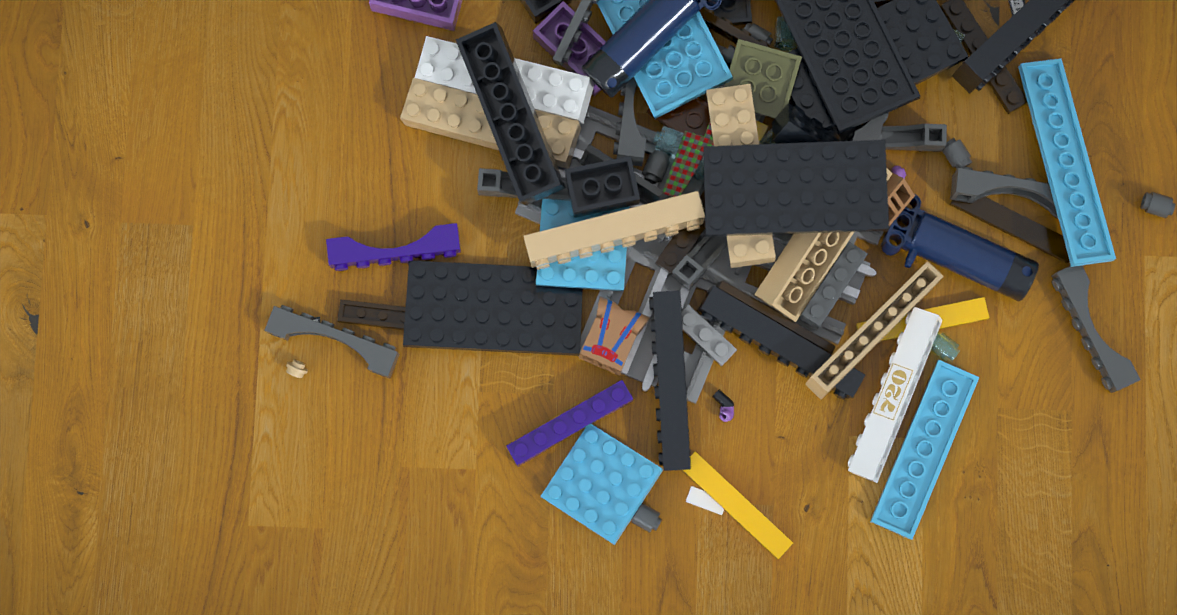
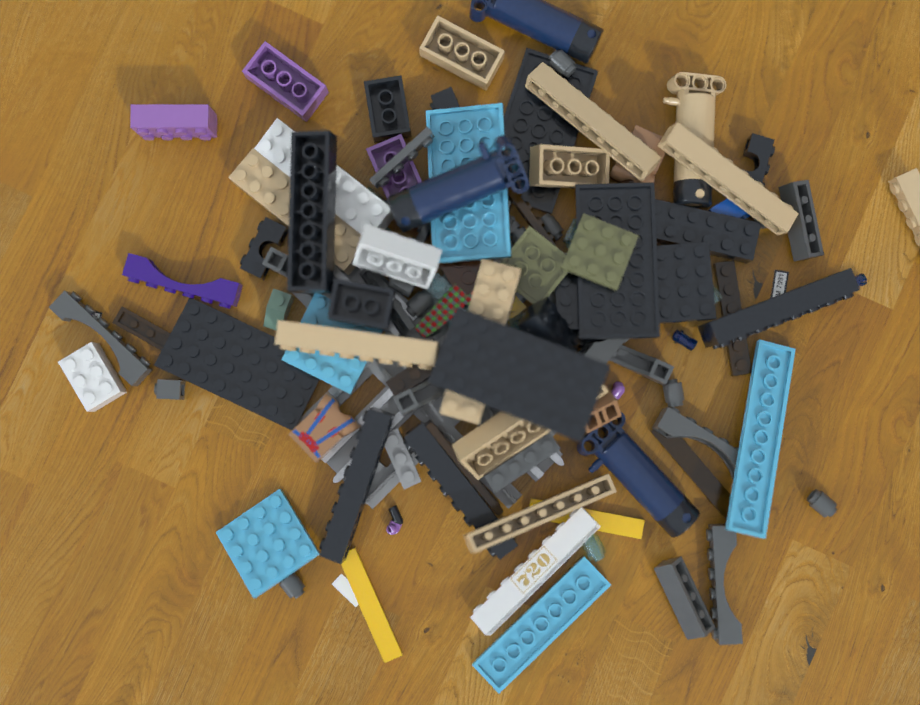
camera: 30 degrees right, 5 degrees up
(296, 368) = (64, 348): tan plate -> none
(317, 83) = (174, 121): none -> medium lavender brick
(340, 385) = (92, 377): none -> white brick
(428, 365) = (170, 389): none -> dark grey brick
(466, 159) = (268, 233): none -> black arch
(508, 236) = (277, 308): none -> sand green slope
(569, 423) = (262, 484): dark purple arch -> none
(618, 123) = (397, 256): none -> white brick
(822, 36) = (599, 252): none -> olive plate
(945, 96) = (684, 340): none -> clear blue pin
(1060, 358) = (684, 598): none -> dark grey brick

